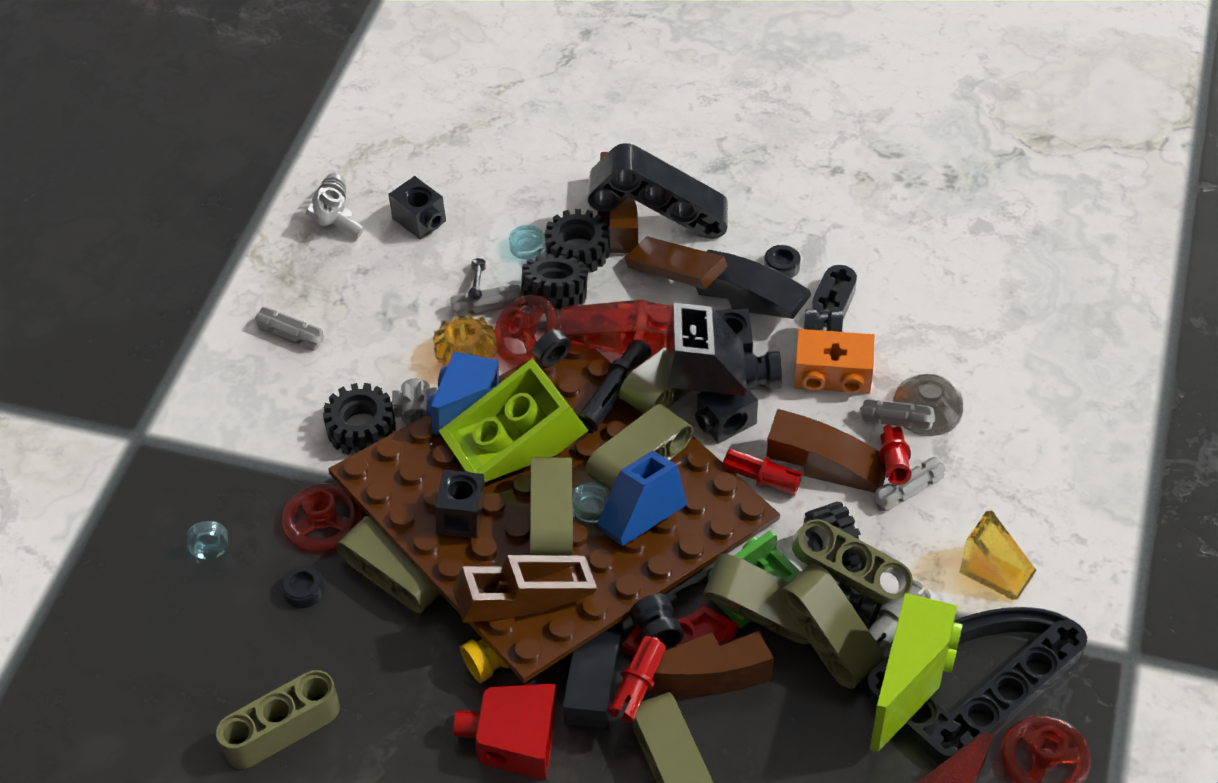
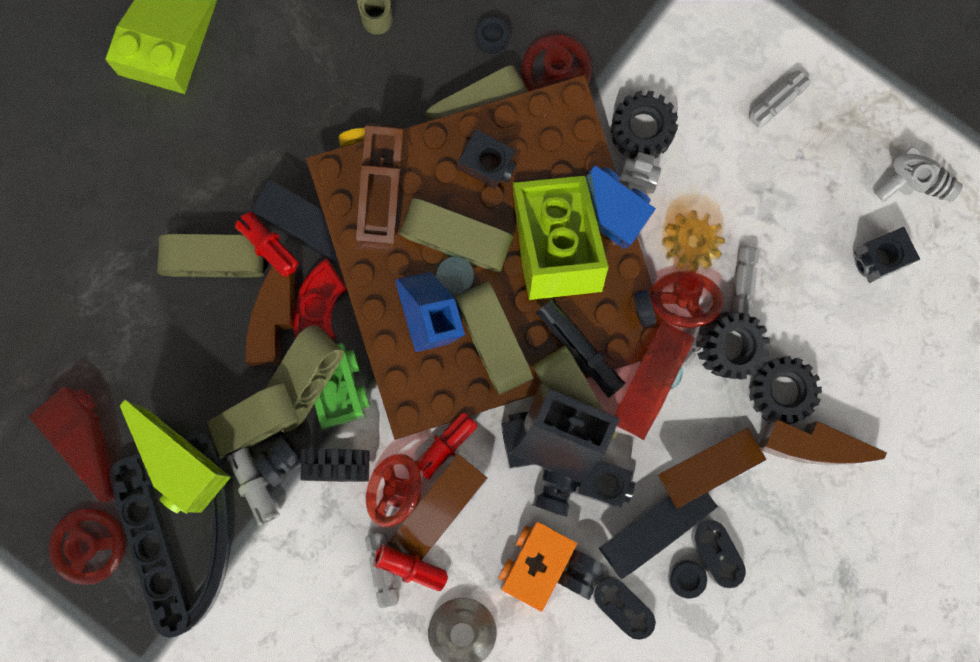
camera: 105 degrees right, 30 degrees up
(477, 265) = (794, 291): black hinge -> none
(513, 728) = (282, 145): red torso -> none
(527, 242) = (807, 345): clear light blue tile -> none
(655, 619) = (319, 285): black wheel -> none
(659, 186) = (802, 482): black beam -> none
(743, 242) = (725, 549): none -> black beam
(825, 476) = (396, 492): none -> clear red piece
(872, 562) = (266, 458): olive beam -> none
(897, 414) = (452, 593): light grey axle -> none
(996, 558) = (267, 601): clear yellow slope -> none

